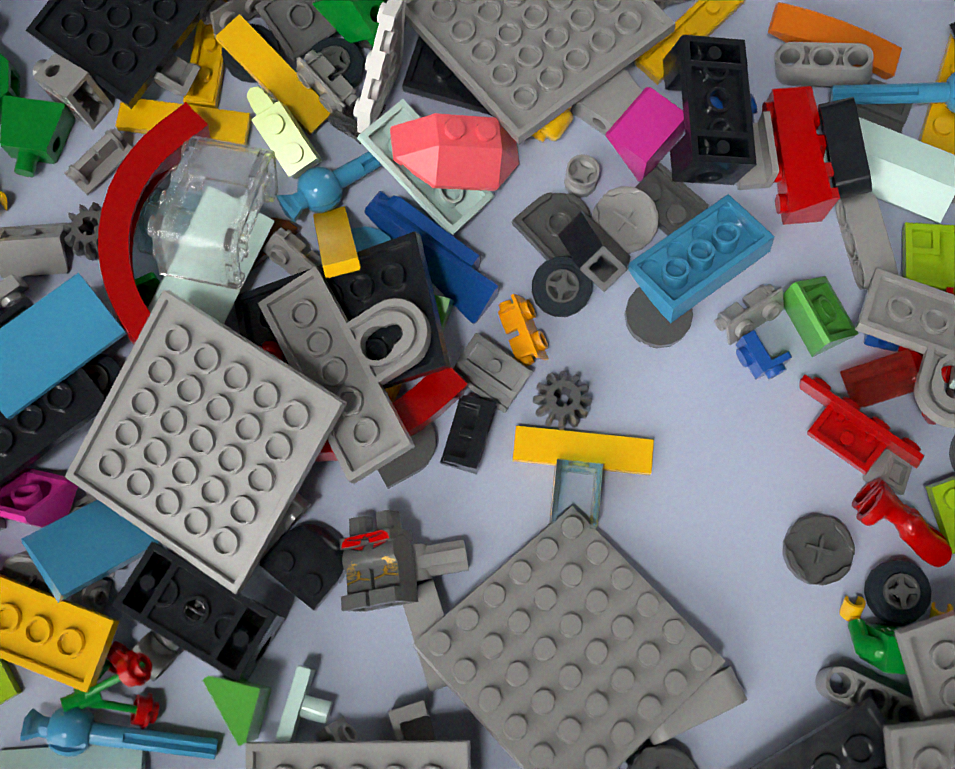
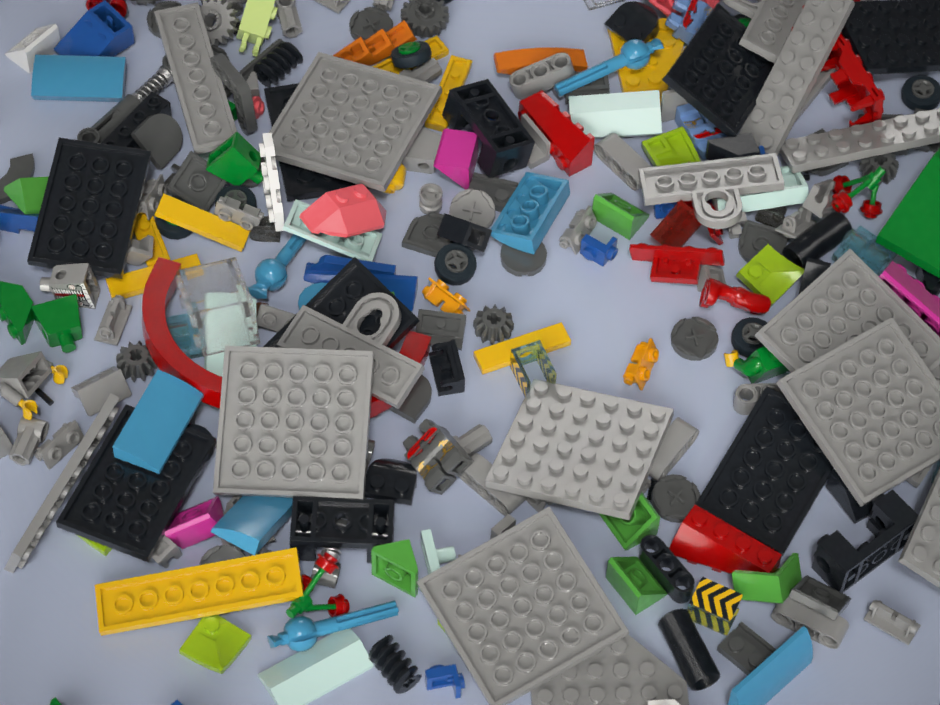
camera: 30 degrees left, 20 degrees down
(282, 133) = (224, 245): yellowish green hinge -> none
(336, 242) = (304, 290): yellow tile -> none
(738, 546) = (645, 356): none -> light orange hinge
(845, 147) = (581, 111): black beam -> none

